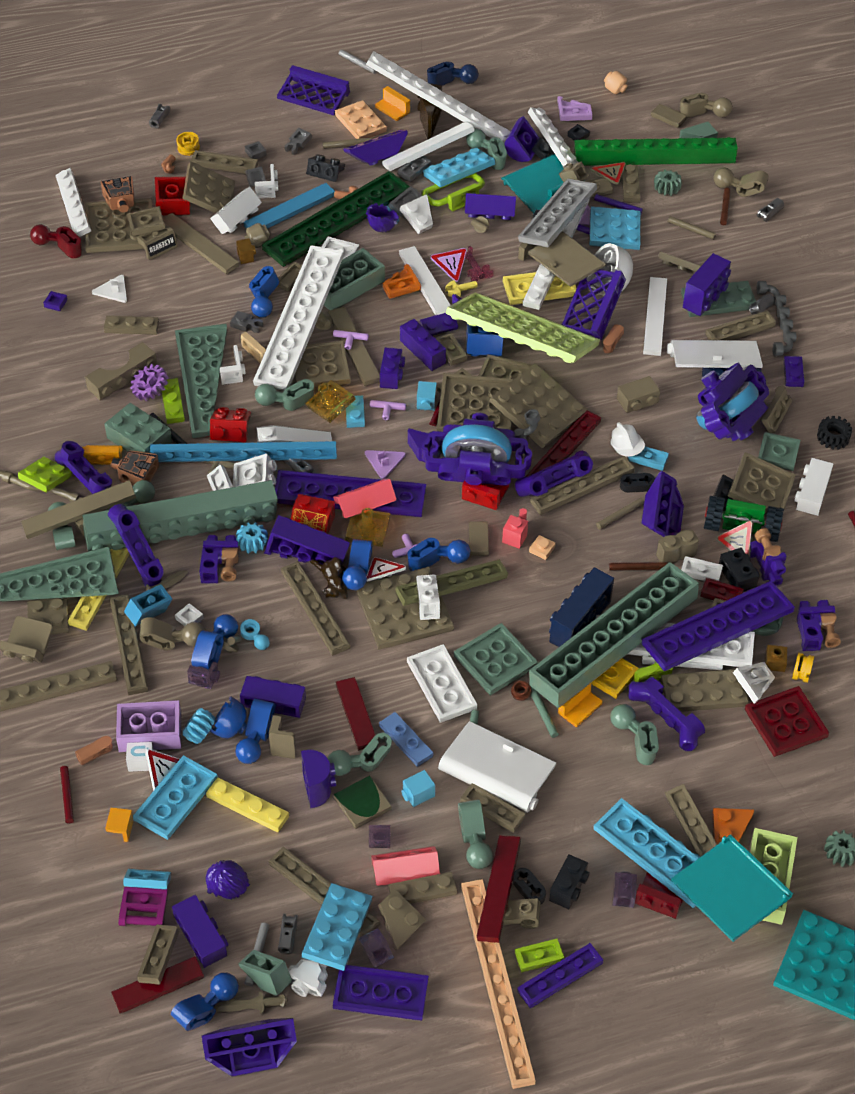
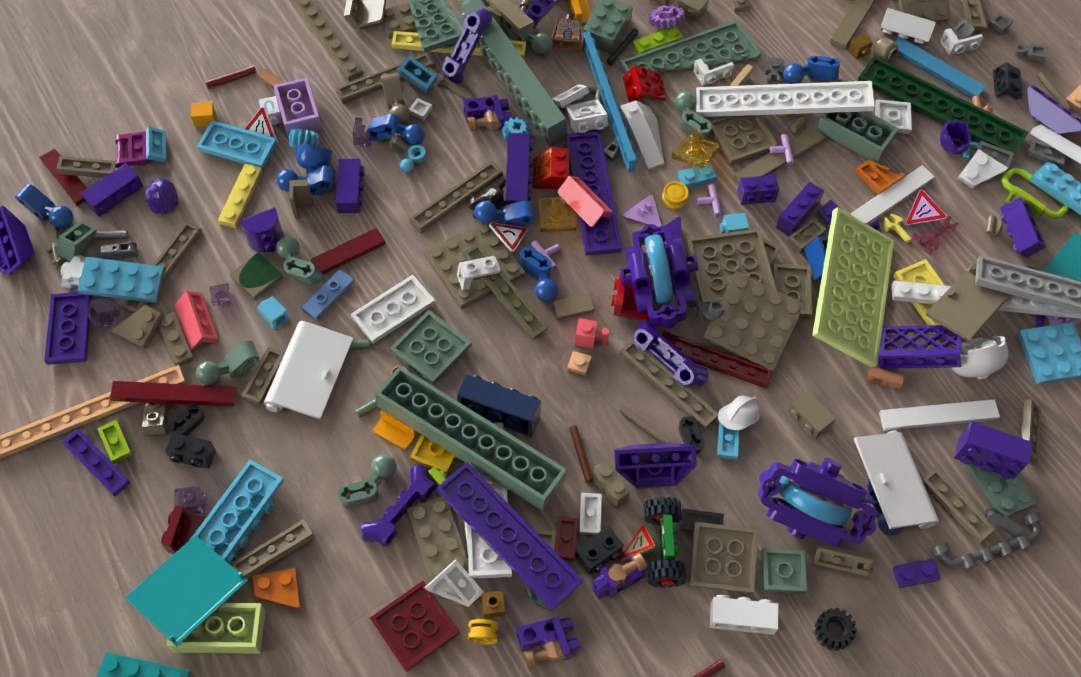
camera: 75 degrees right, 10 degrees up
(375, 431) = (675, 195): none -> yellow wheel

